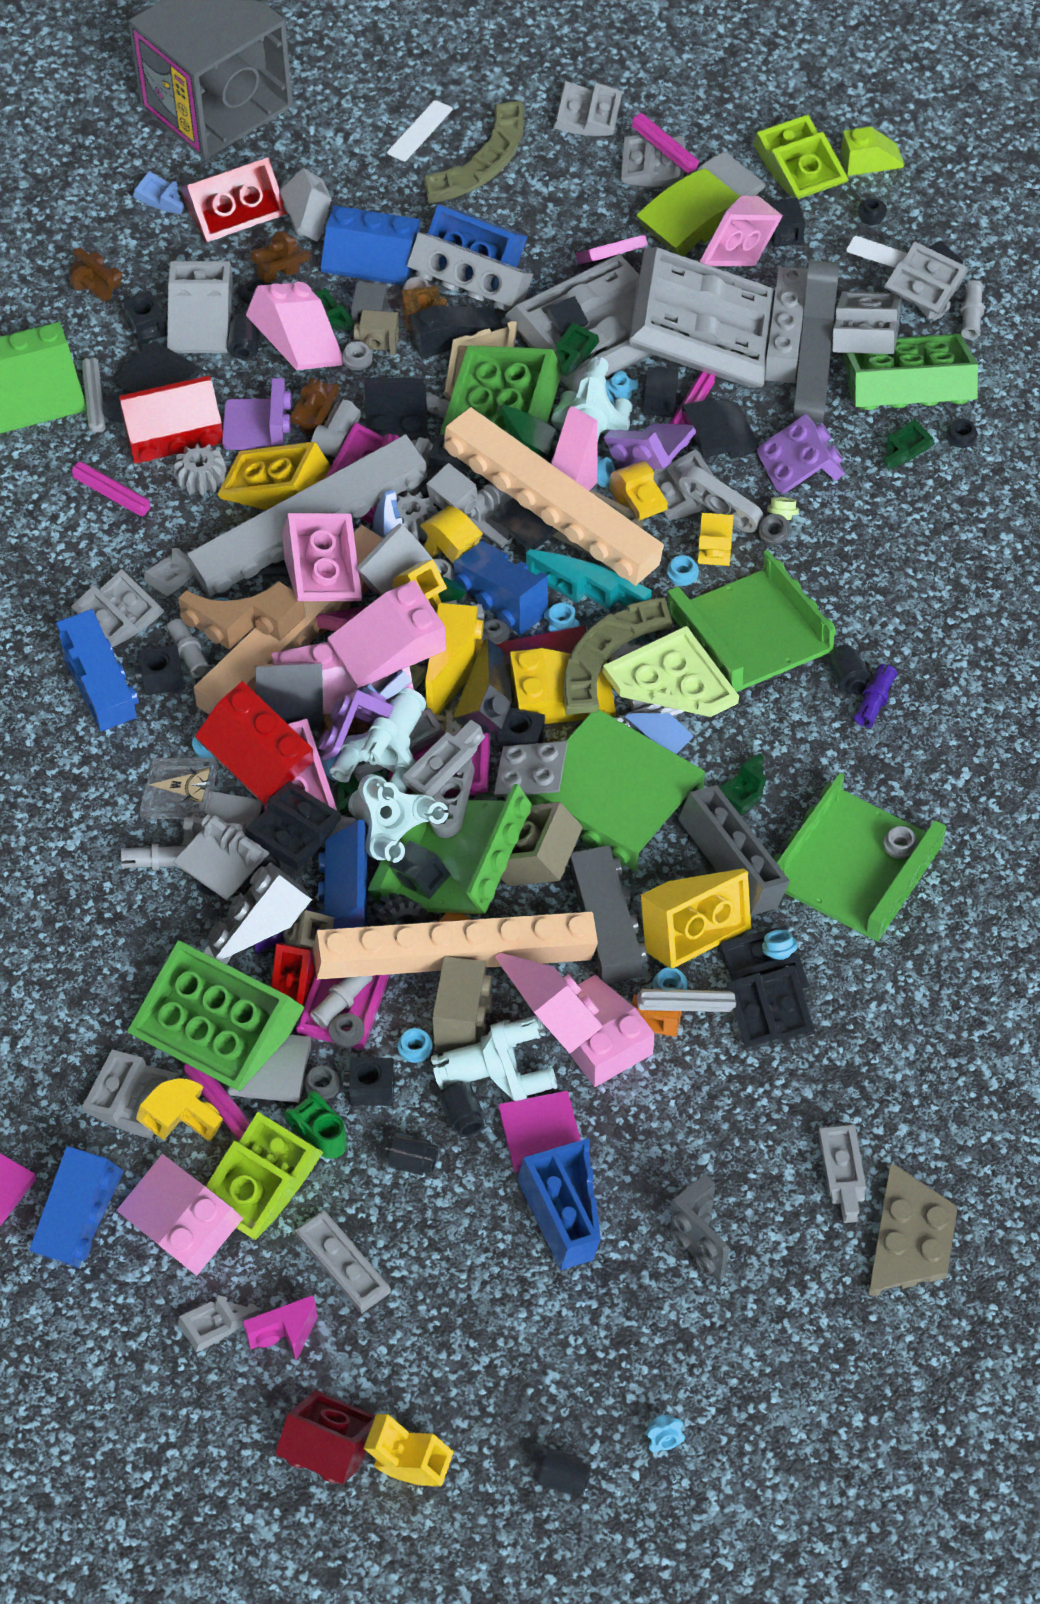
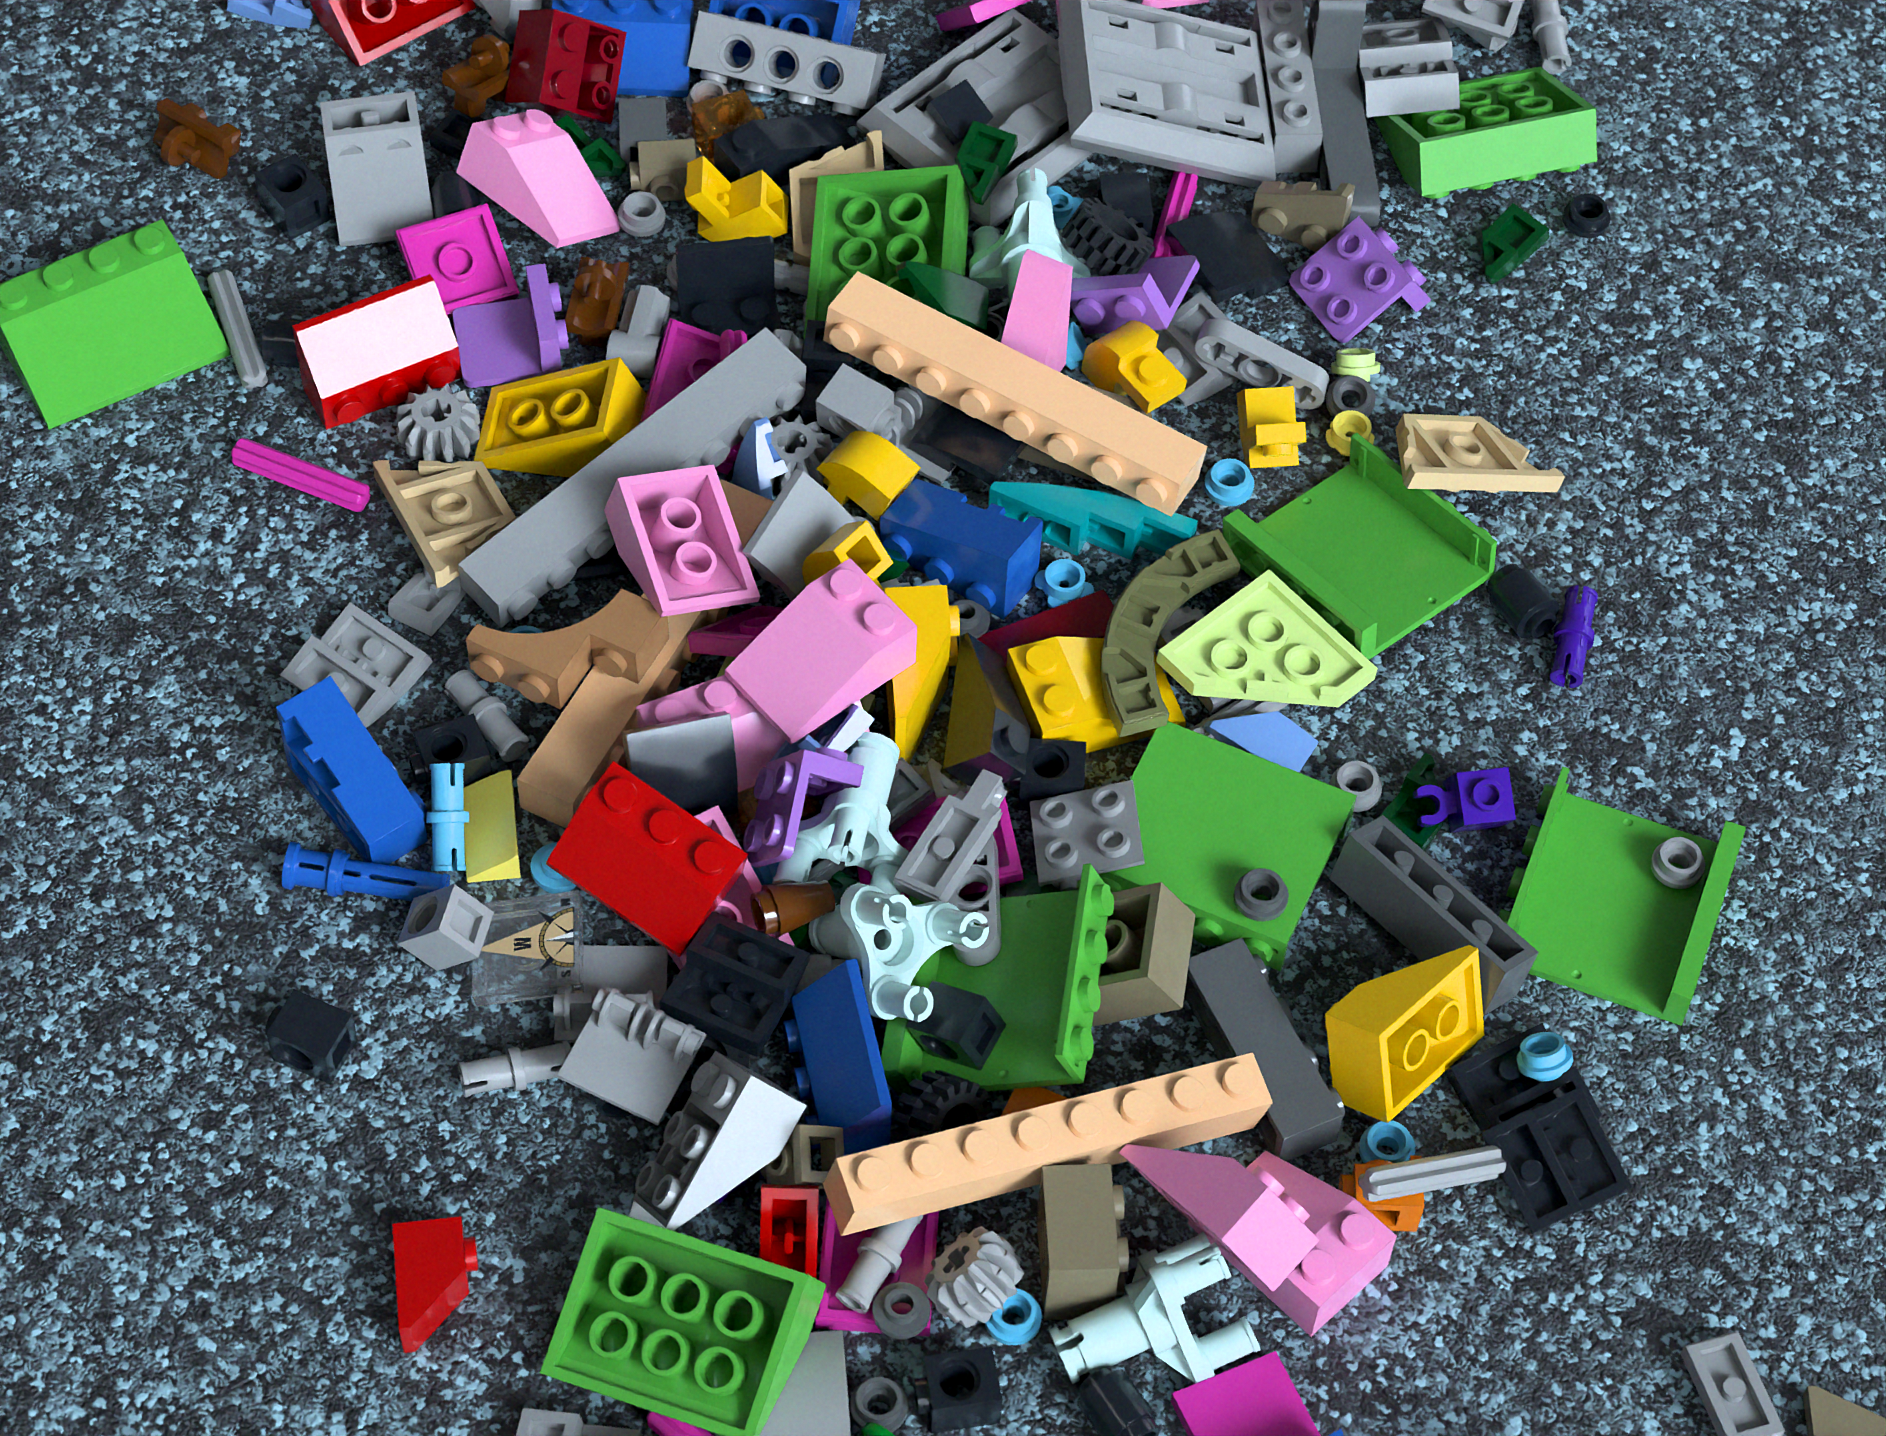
camera: 15 degrees left, 0 degrees up
(39, 819) = (311, 1036): none -> black brick
(76, 729) = (339, 865): none -> blue pin
(76, 966) = (430, 1274): none -> red slope
(131, 768) = (445, 927): none -> light grey brick
(148, 703) = (447, 817): none -> medium azure pin
(155, 368) = (330, 276): black slope -> none
(175, 715) = (492, 829): none -> light yellow slope
(190, 521) = (445, 510): none -> tan wing
(236, 370) = (461, 256): none -> dark pink tile
(329, 257) = (565, 65): none -> dark red slope
(335, 784) = (790, 905): none -> reddish brown cone
(394, 1017) = (974, 1277): none -> light grey gear
(414, 360) = (735, 209): none -> yellow brick
(626, 813) = (1261, 882): none -> dark grey plate
(640, 407) = (1107, 239): none -> black tyre
(712, 760) = (1362, 776): none -> light grey plate
(768, 543) = (1346, 425): none -> light yellow plate
(772, 406) = (1302, 211): none -> dark tan wing
(780, 785) = (1472, 800): none -> dark purple brick
(836, 573) = (1466, 455): none -> tan wing

